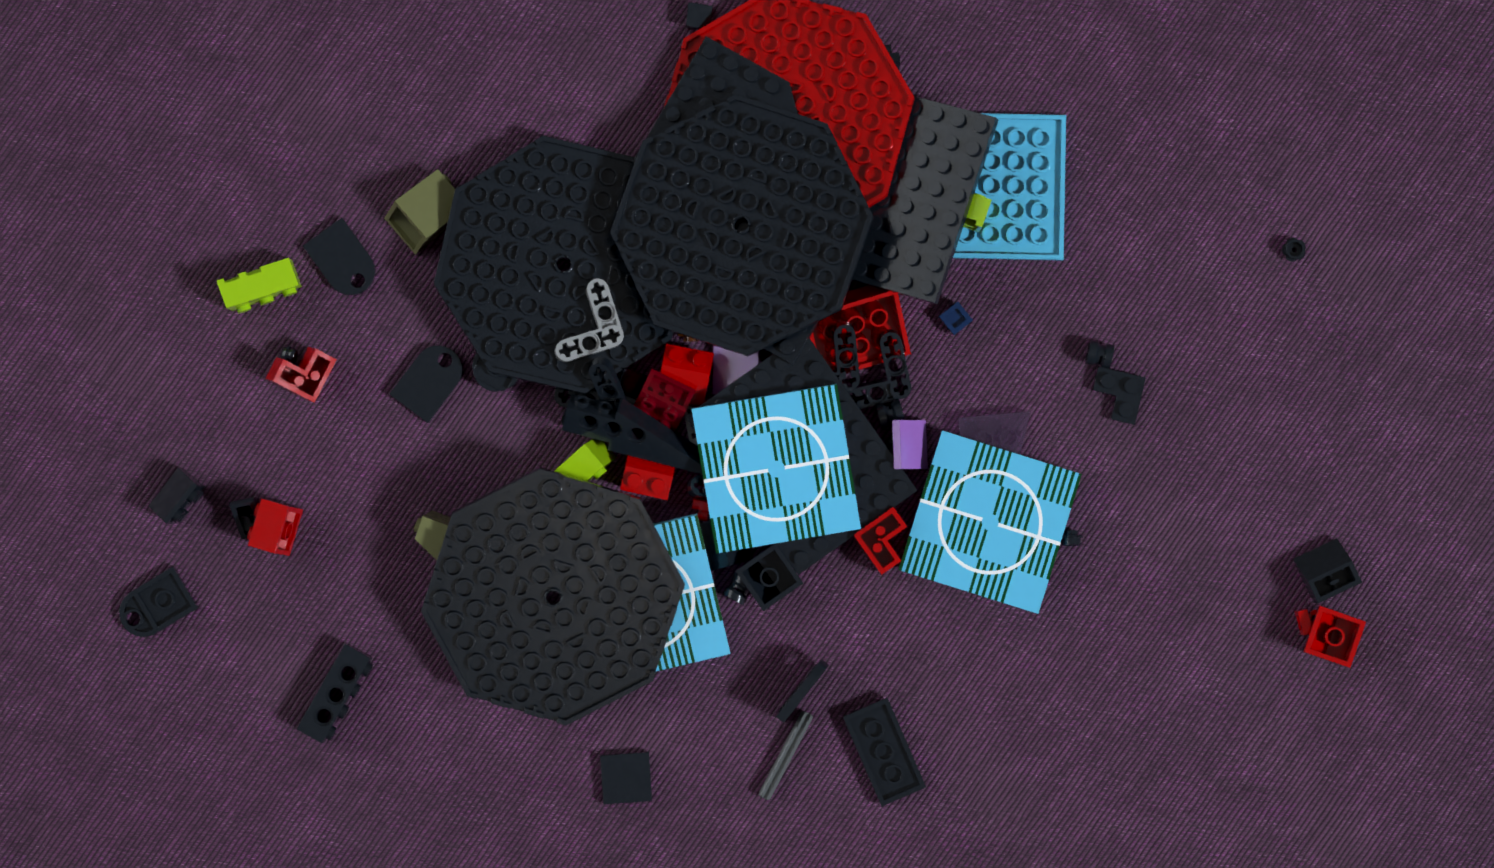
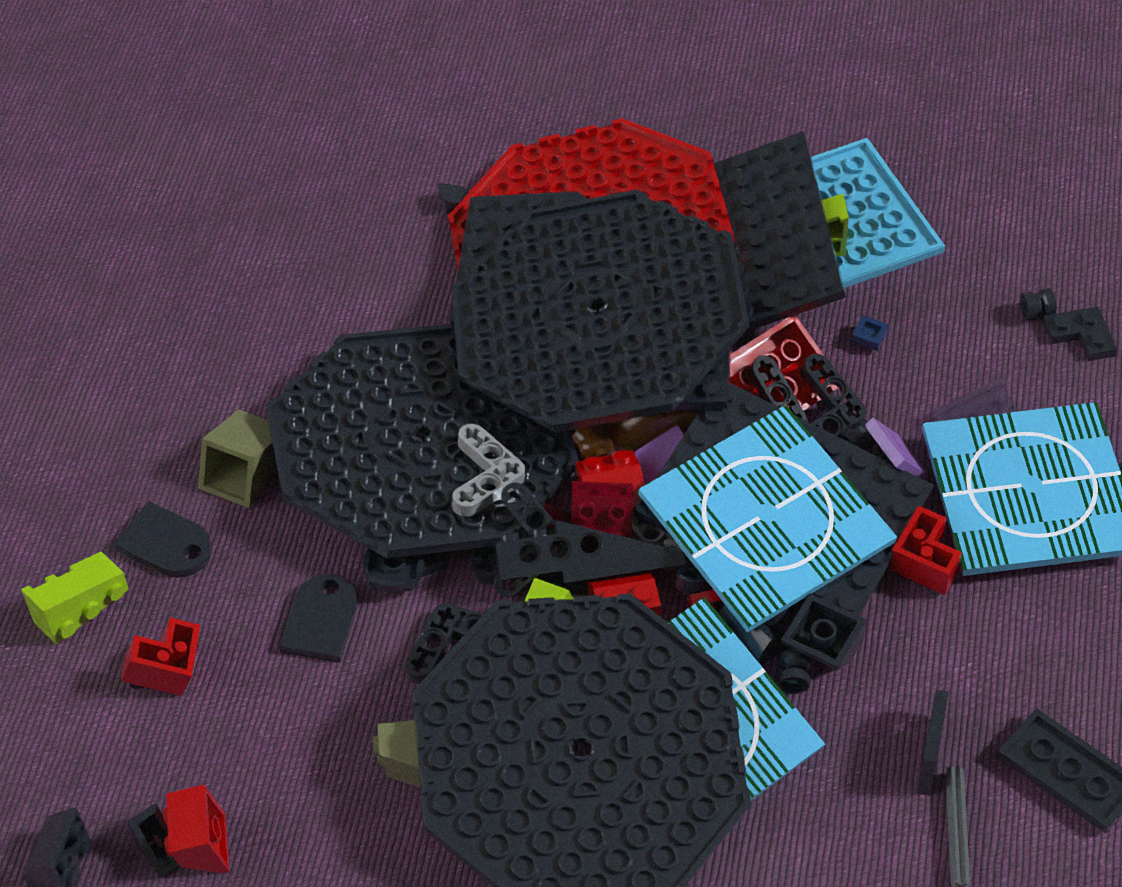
camera: 25 degrees left, 35 degrees down
(520, 437) = (452, 630): none -> black beam

